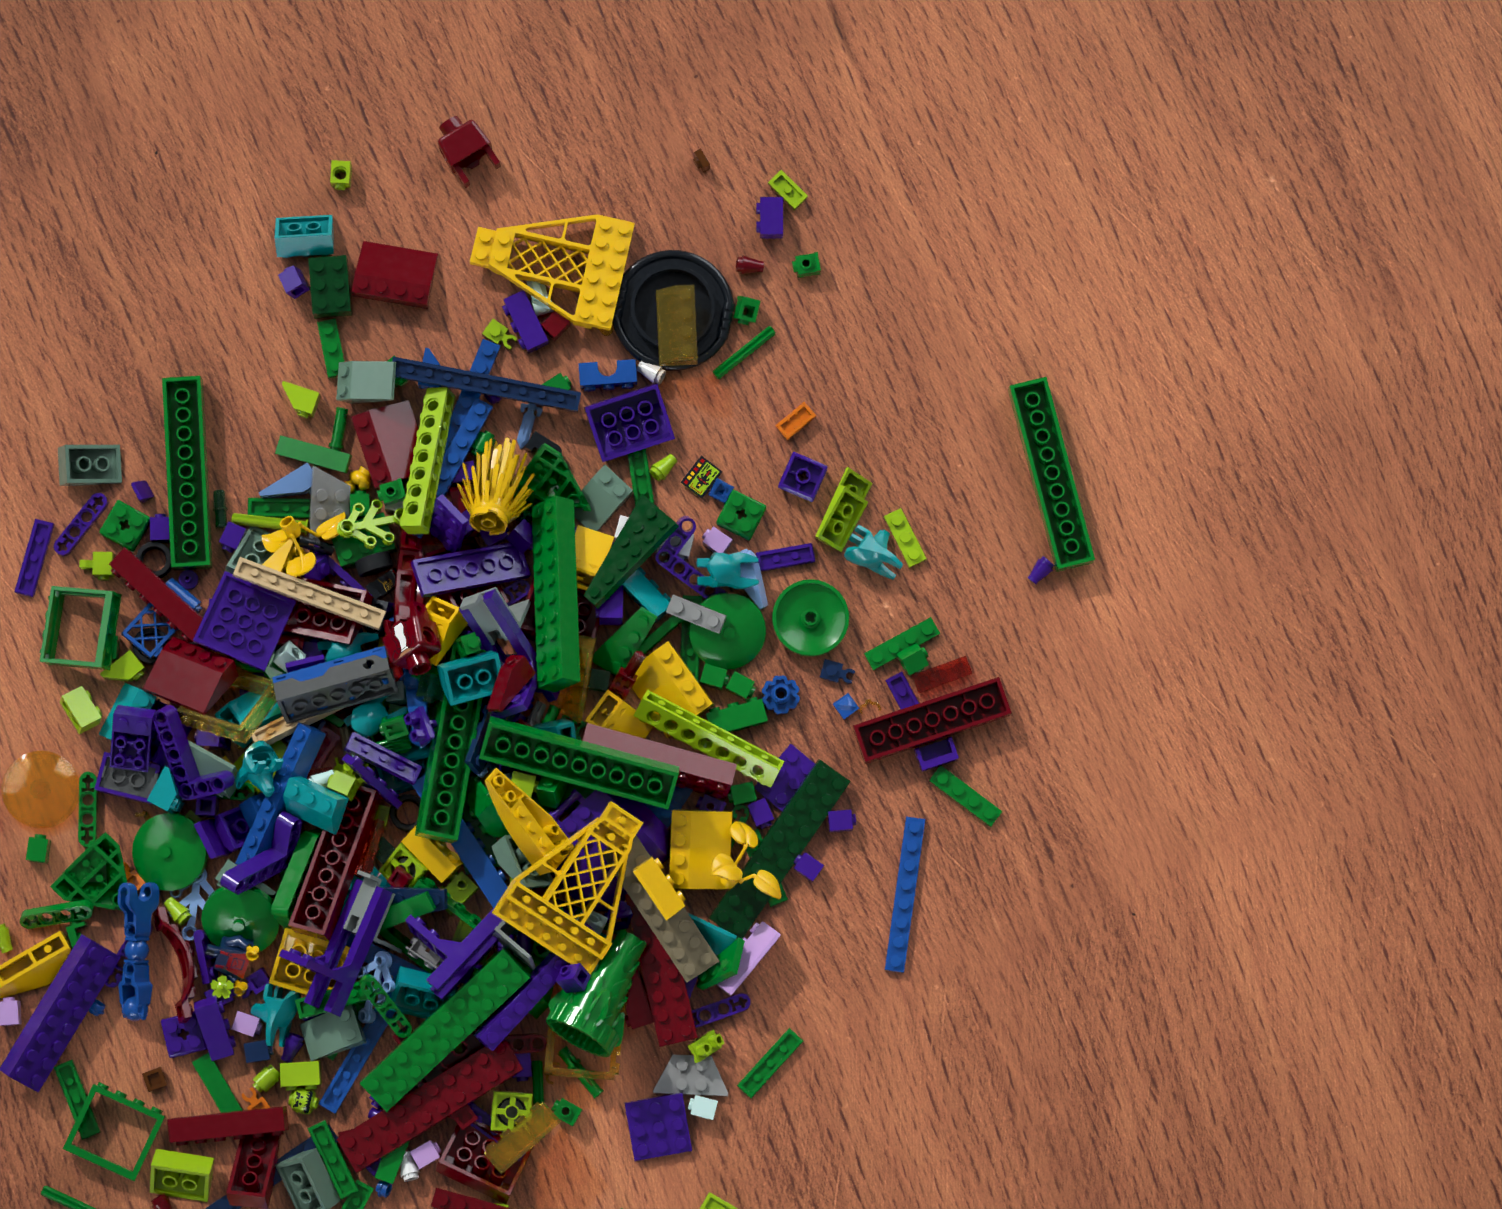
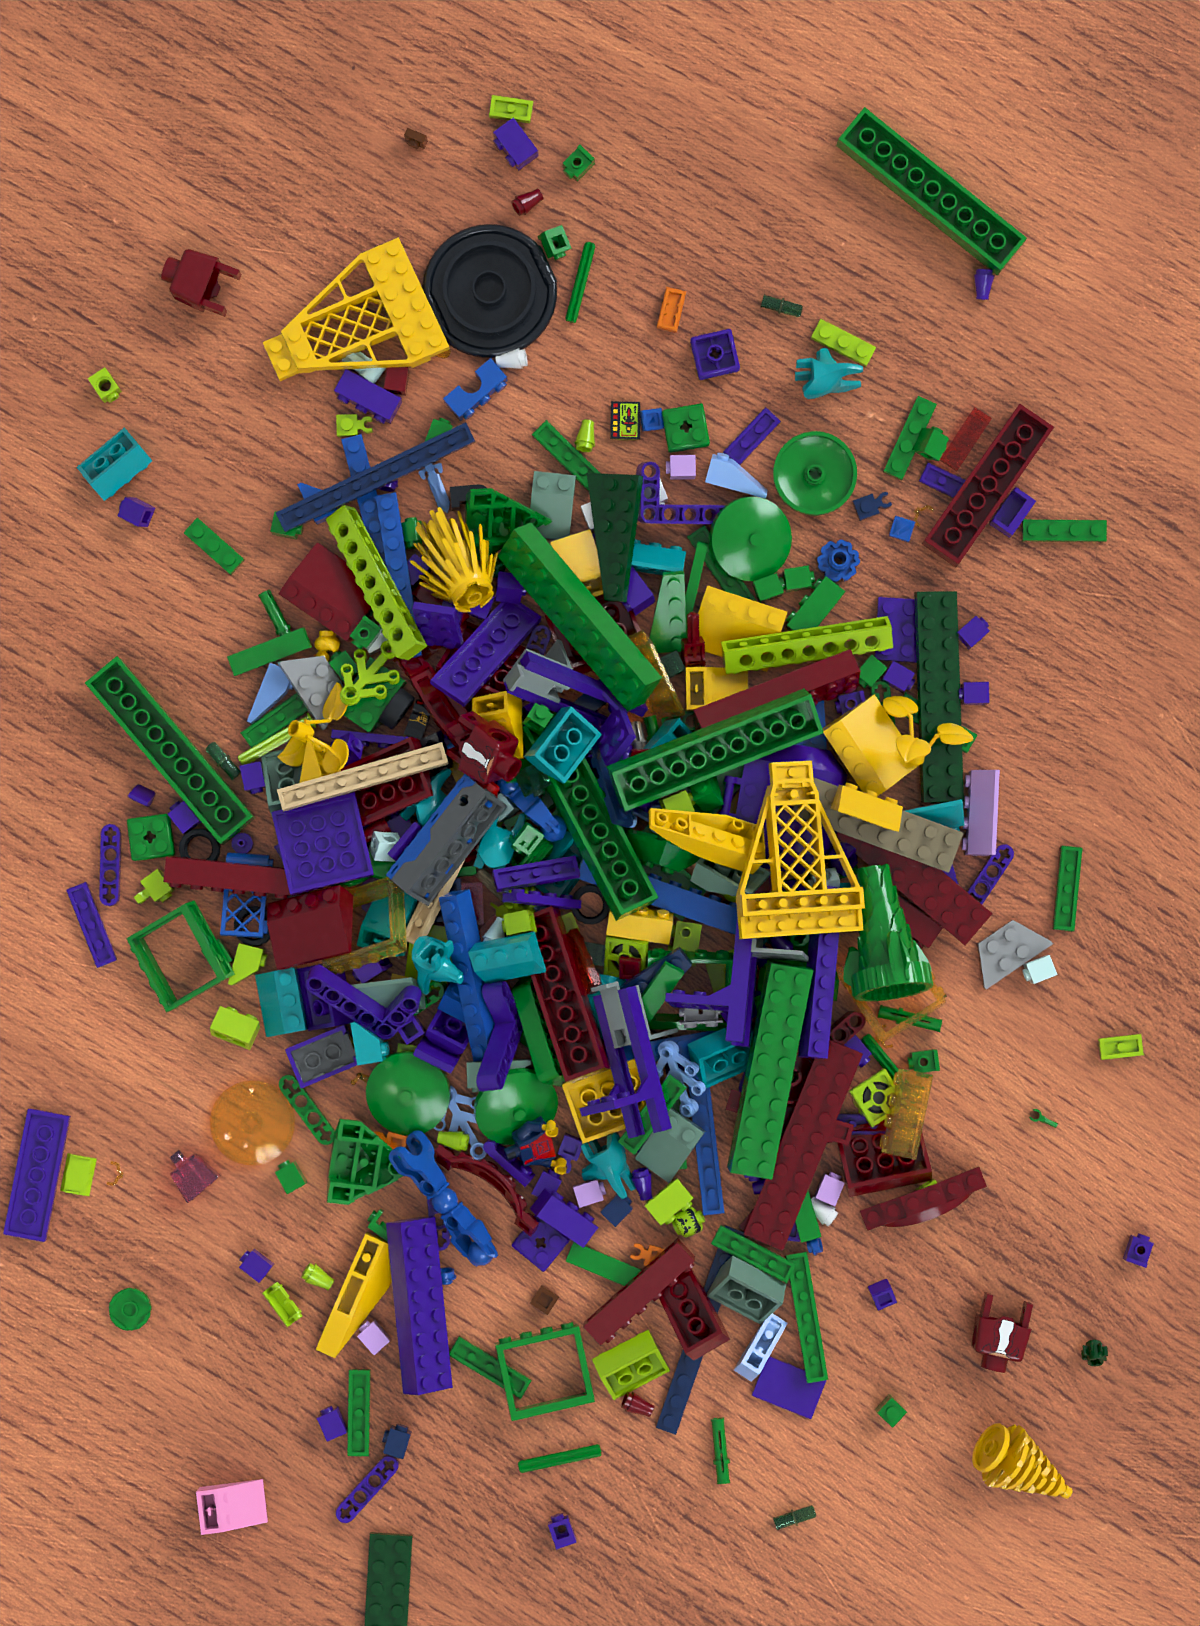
camera: 30 degrees left, 5 degrees up
(34, 917) = (367, 1203): green beam -> none
(89, 465) = (77, 807): sand green slope -> none
(132, 738) = (301, 1019): dark purple slope -> none
(222, 987) = (544, 1177): lime plant -> none
(266, 1078) = (641, 1227): lime brick -> none
(302, 399) = (222, 610): lime slope -> none
(325, 548) = (342, 726): black pin -> none
(330, 286) = (171, 492): dark green brick -> none
(366, 381) = (268, 552): sand green slope -> none
(383, 1007) = (702, 1089): green beam -> none
(394, 275) = (220, 440): dark red slope -> none
(423, 726) = (553, 820): dark purple hips -> none
(510, 680) = (600, 722): dark red slope -> none
(573, 978) = (851, 942): dark purple brick -> none
(629, 422) = (526, 418): dark purple slope -> none
(658, 1126) = (1012, 1015): dark purple plate -> none
(676, 325) = (506, 300): clear yellow slope -> none
(696, 614) = (714, 543): light grey plate -> none
(706, 1045) = (1002, 914): lime hips -> none
(726, 570) = (712, 485): teal piece -> none
(726, 967) = (973, 831): green wing -> none
(844, 510) = (772, 357): lime slope -> none
(879, 477) = (781, 306): none -> clear green axle
(904, 894) = (1075, 655): blue plate -> none

